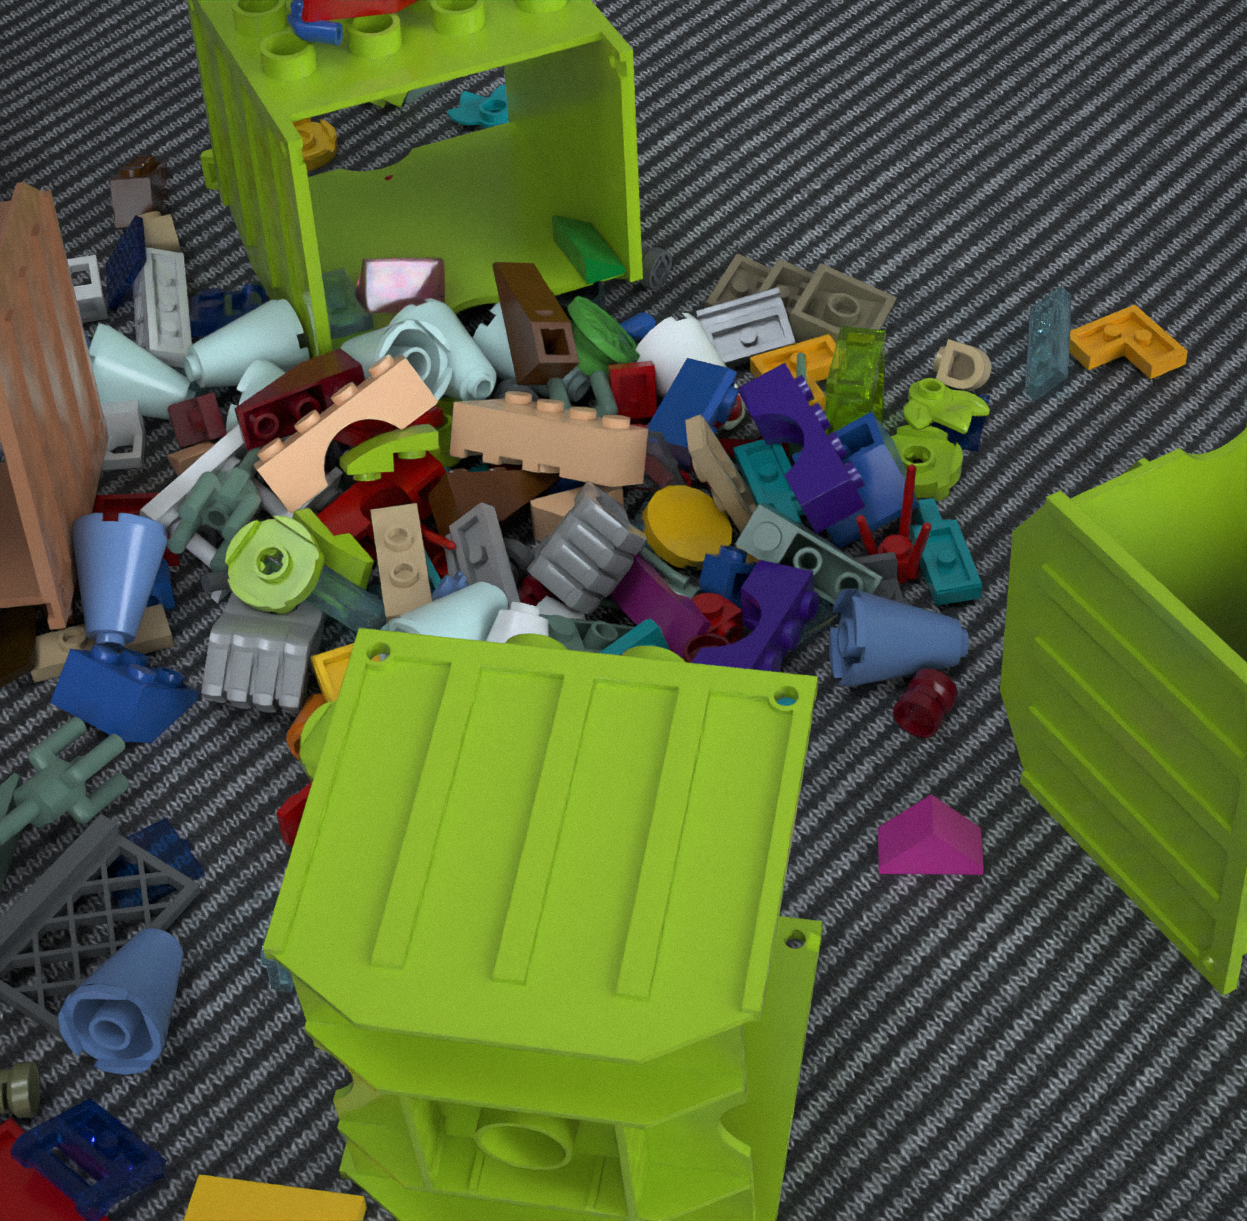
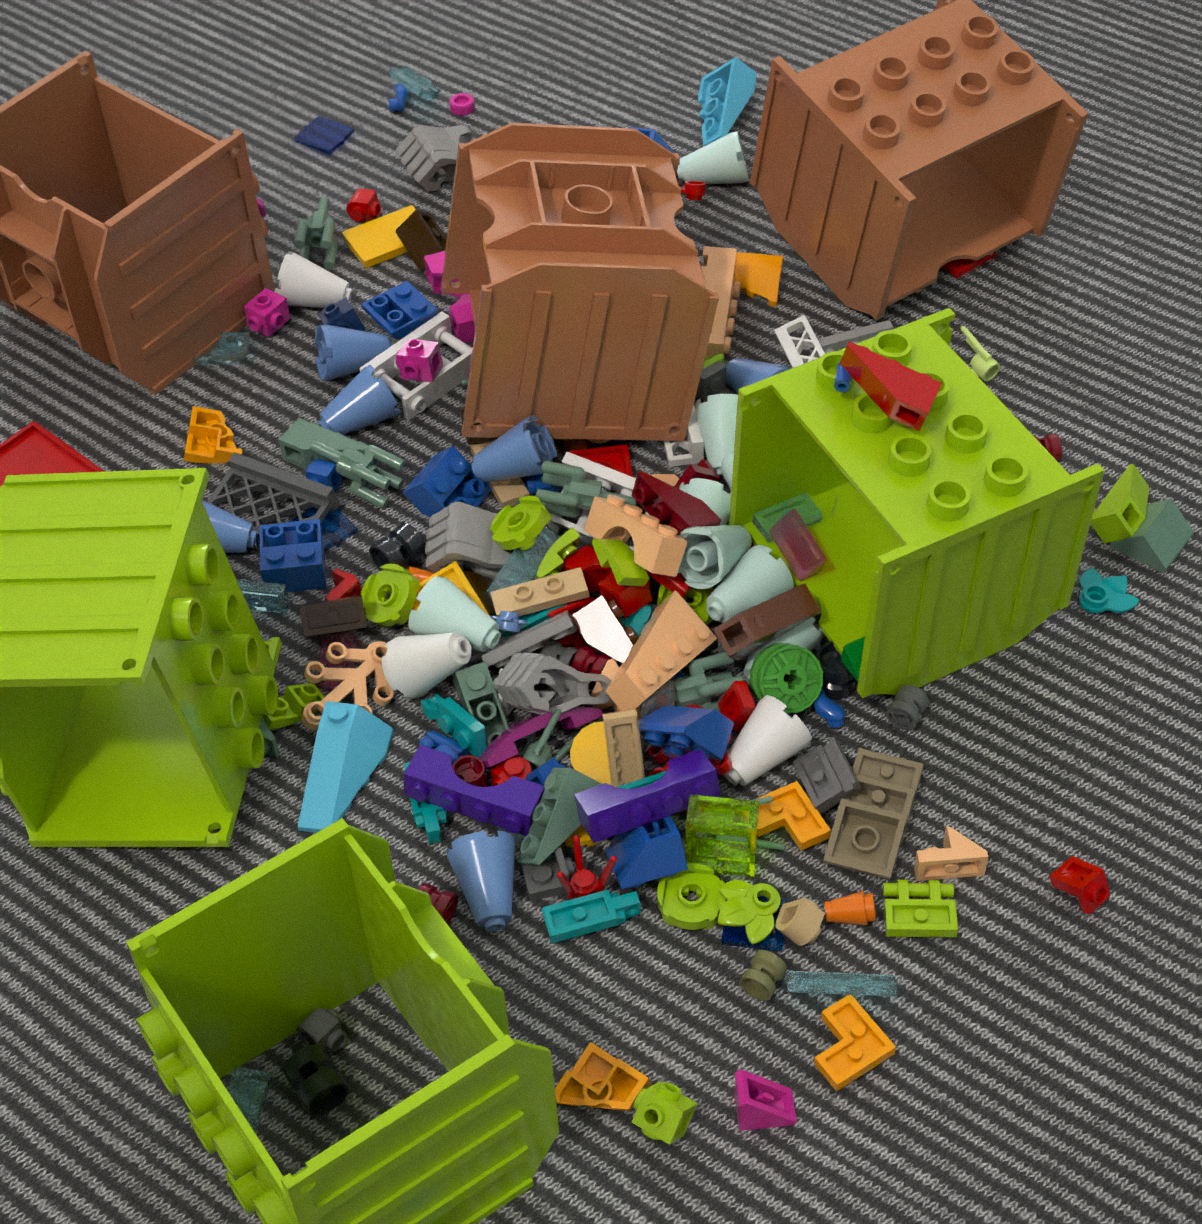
camera: 85 degrees right, 5 degrees up
(38, 849) = (324, 473): none -> blue plate
(69, 159) = (982, 363): none -> yellowish green plant
(223, 879) = (293, 555): none -> blue slope
(247, 747) = (401, 548): none -> black wheel
(528, 527) = (589, 661): none -> dark red wheel
(869, 245) = (956, 860): none -> light nougat slope
(909, 159) = (1083, 881): none -> red bracket
(940, 322) = (851, 909): none -> orange cone
(952, 282) = (920, 916): none -> lime plate
(1036, 403) = (764, 973): none -> olive wheel
(1214, 418) = (762, 1102): none -> dark pink slope

